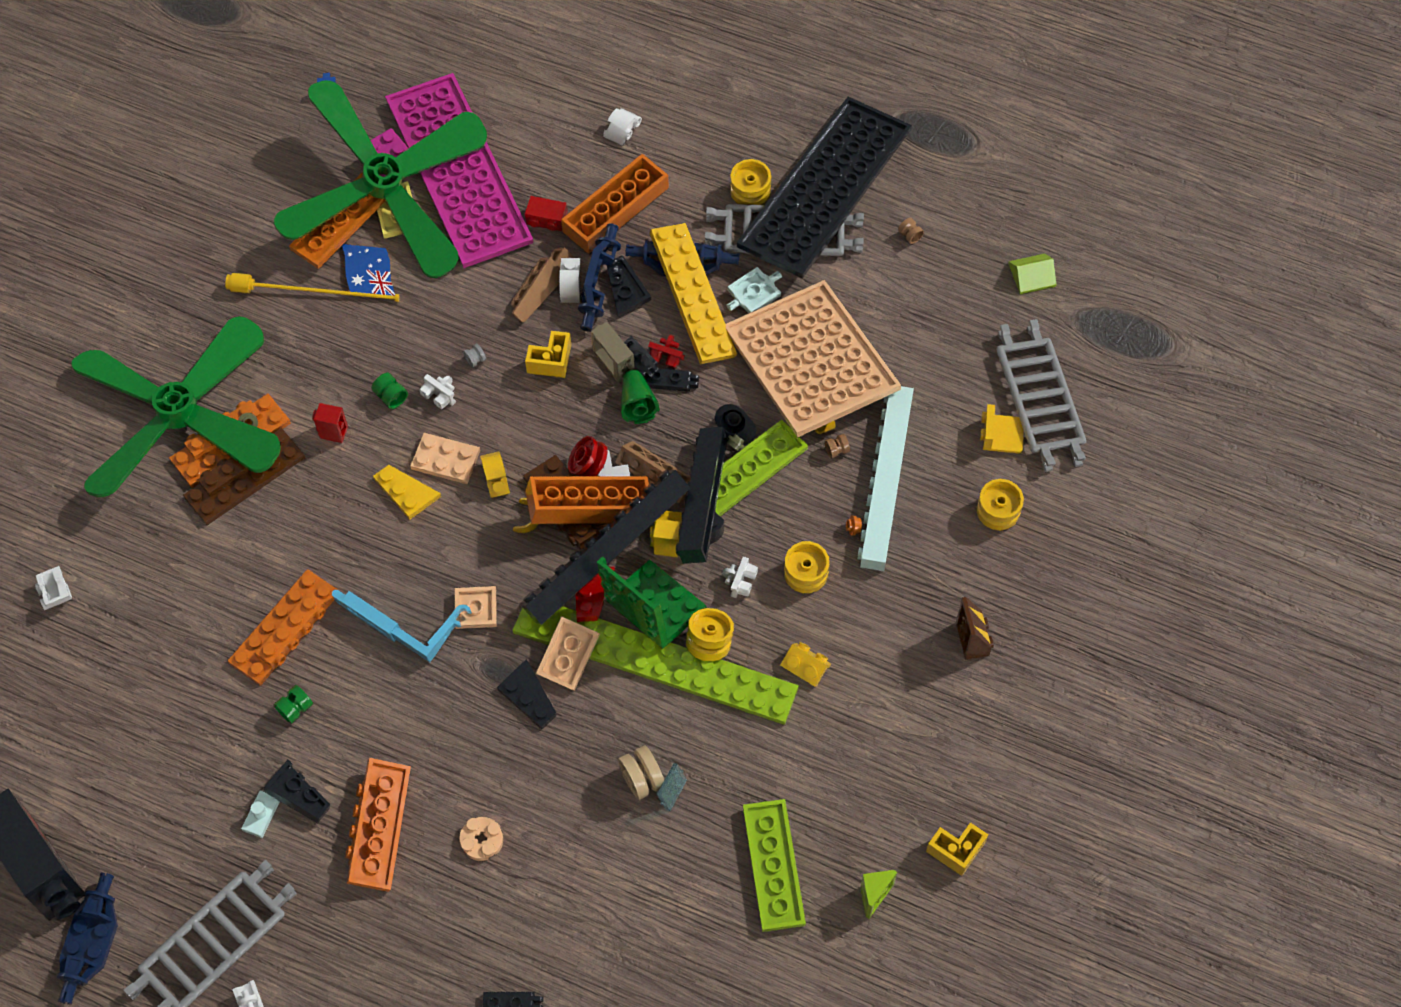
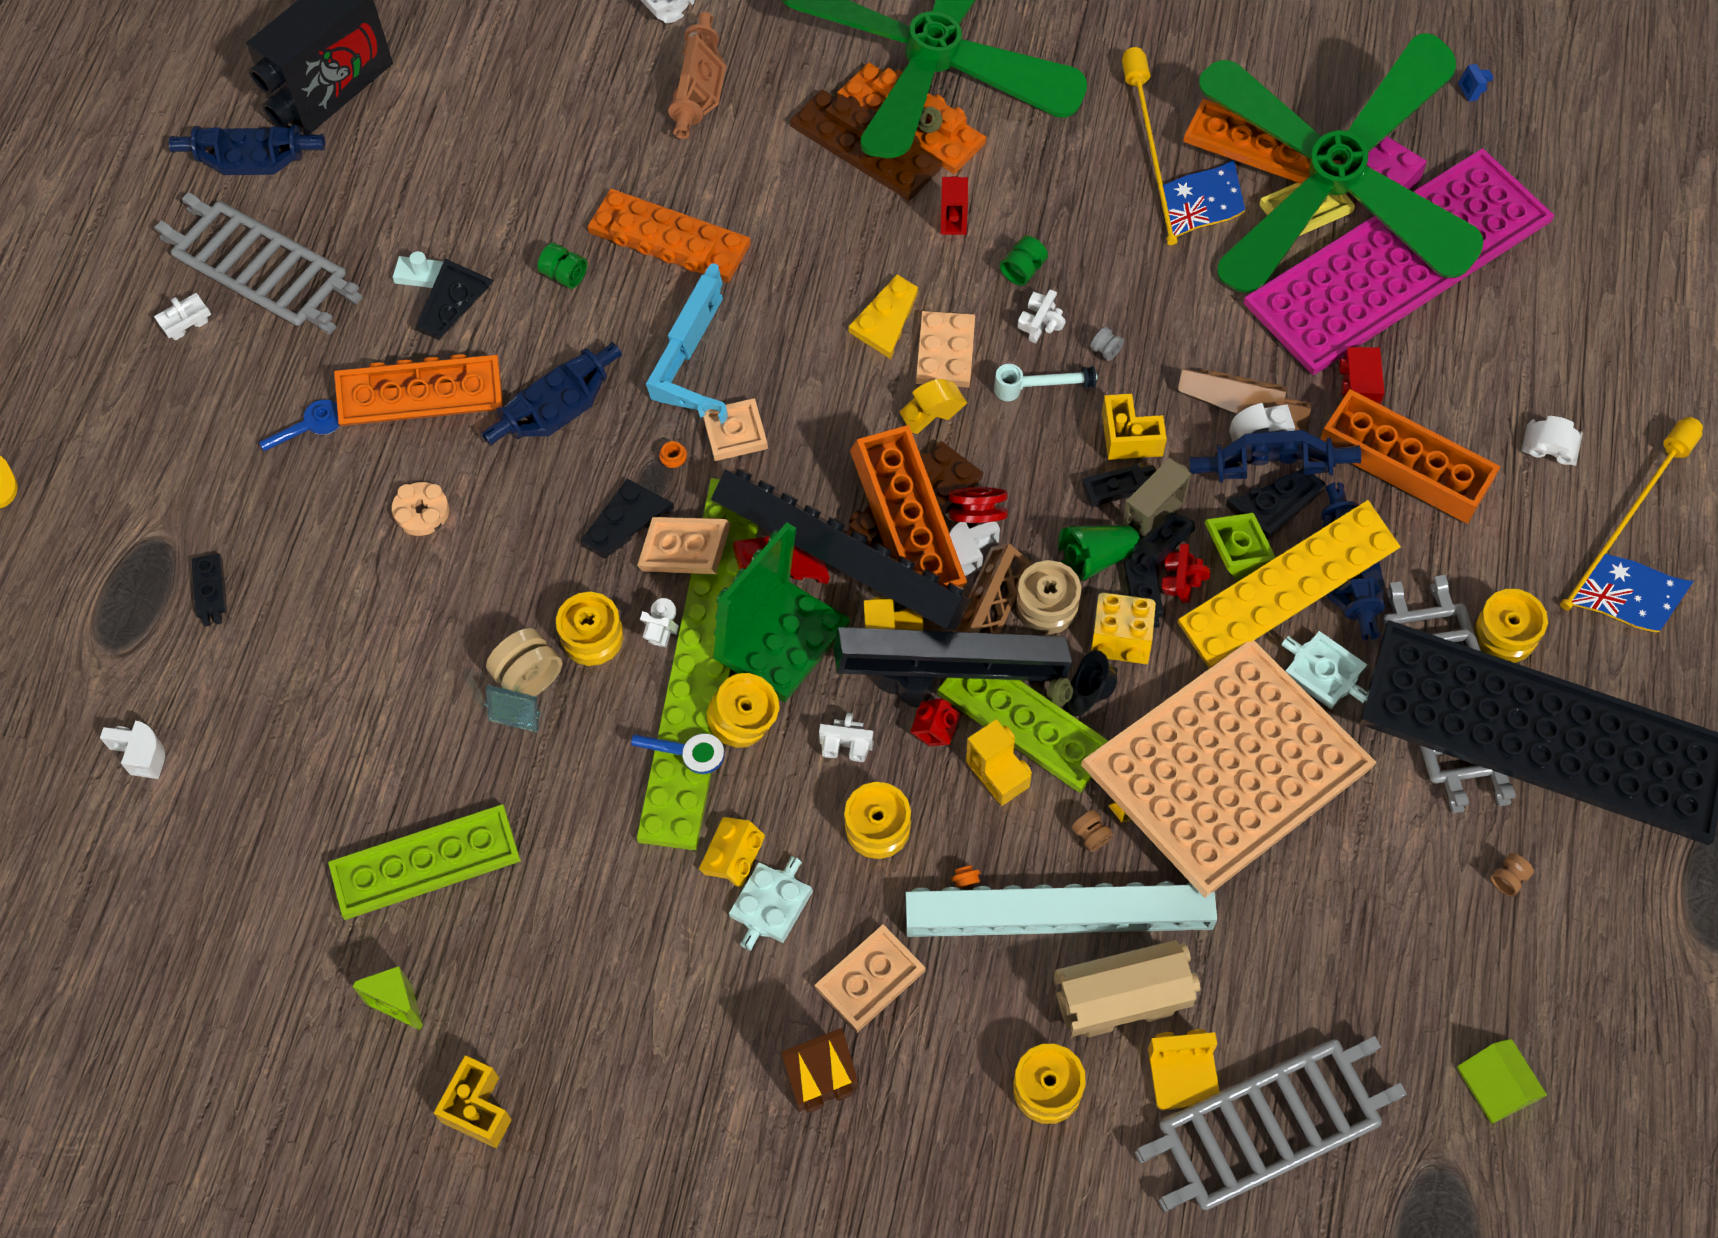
camera: 80 degrees right, 0 degrees up
(161, 580) = (700, 77): none -> nougat plate
(375, 906) = (319, 418): none -> blue piece
(410, 728) = (554, 397): none -> dark blue plate
(484, 648) = (673, 448): none -> orange plate
(497, 374) = (1014, 374): none -> light aqua piece
(587, 375) = (1116, 483): none -> black hinge
(619, 727) = (589, 628): none -> yellow wheel
(629, 679) = (660, 623): none -> white hips
(655, 312) = (1240, 543): none -> lime slope
(666, 433) = (1048, 597): none -> tan wheel
(698, 393) = (1124, 627): none -> yellow bracket
(733, 119) = (1628, 588): none -> flag
(735, 667) = (701, 753): none -> piece
(742, 519) = (935, 722): none -> red brick
(780, 488) = (995, 764): none -> yellow brick
(847, 646) = (770, 902): none -> light aqua plate
(911, 595) = (870, 978): none -> light nougat plate
(949, 447) = (1126, 988): none -> tan brick

